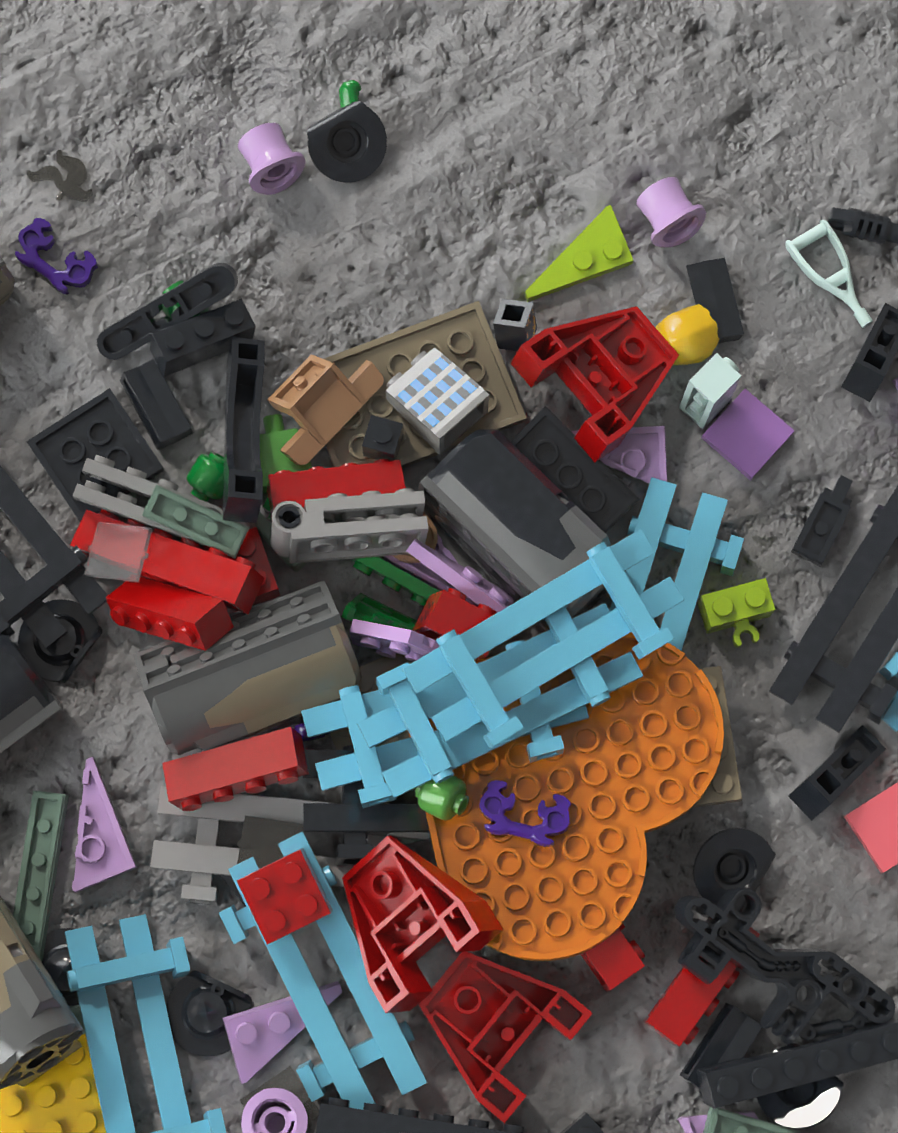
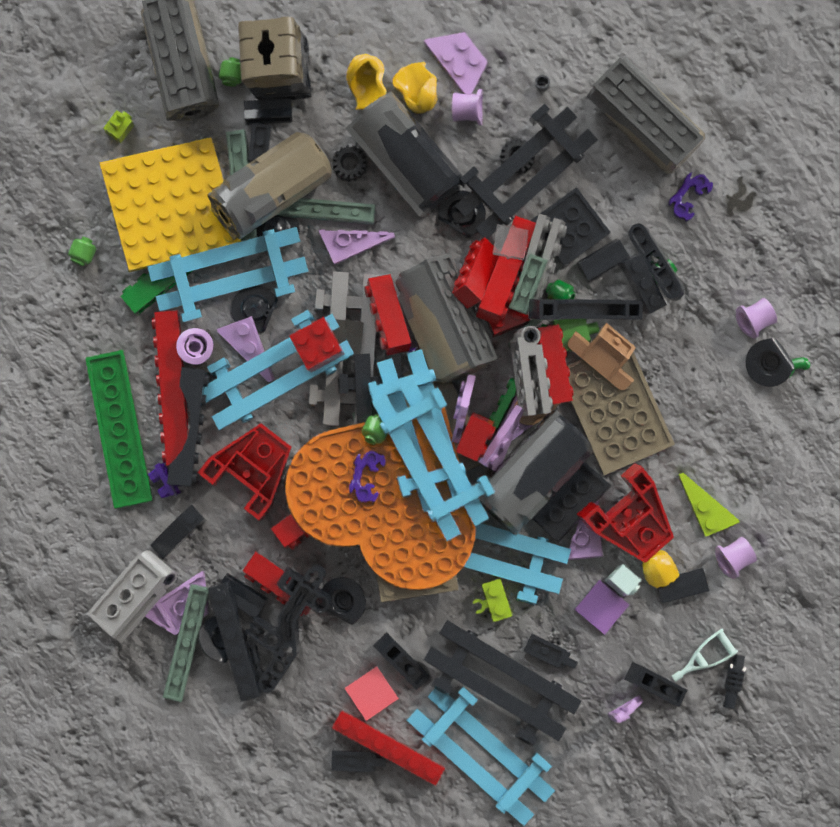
camera: 85 degrees right, 5 degrees up
(372, 611) = (481, 392): green wing -> none
(382, 438) = (585, 390): black brick -> none
(403, 911) = (309, 410): red wedge -> none
(437, 399) = (610, 420): light grey slope -> none
(486, 700) = (479, 530): medium azure fence -> none
(514, 324) = (660, 466): black brick -> none

